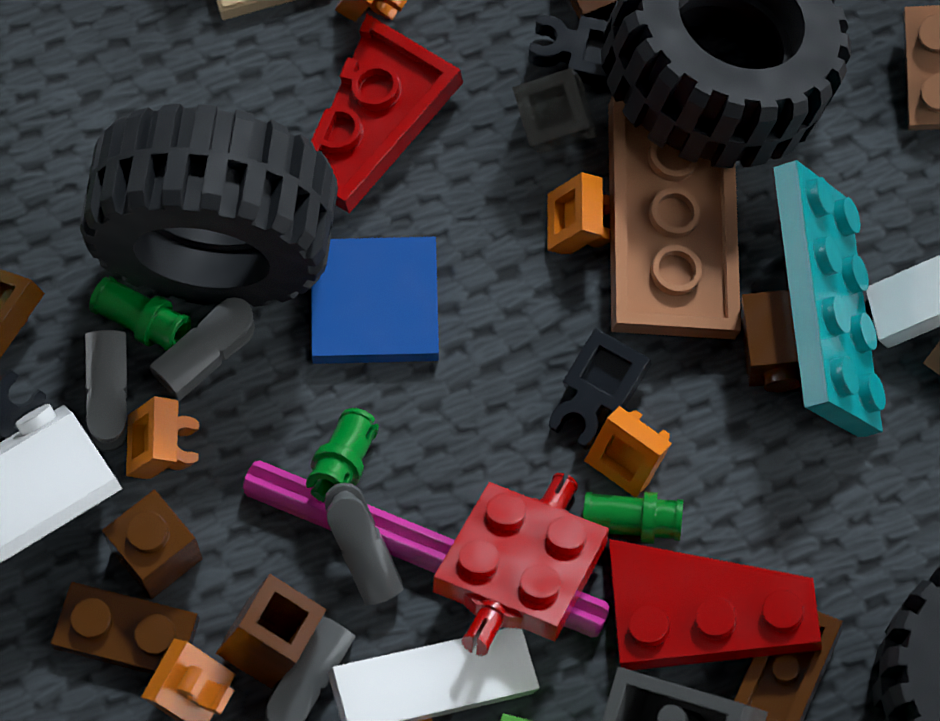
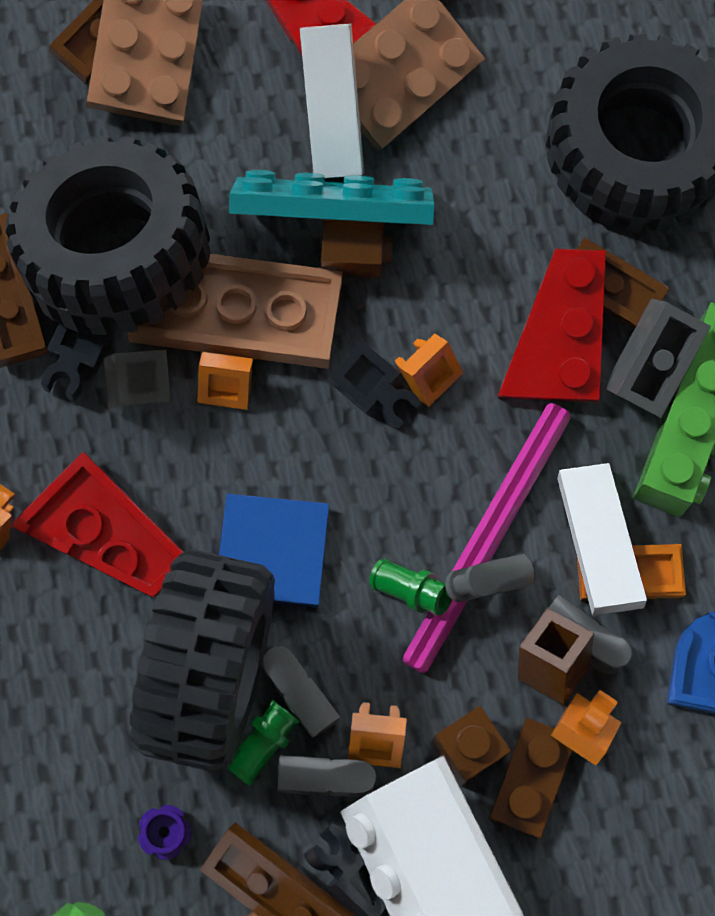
camera: 85 degrees left, 5 degrees up
(26, 210) = (153, 821): none -> dark purple plate
(520, 562) = (517, 459): red plate -> none
(636, 516) = (483, 367): green pin -> none

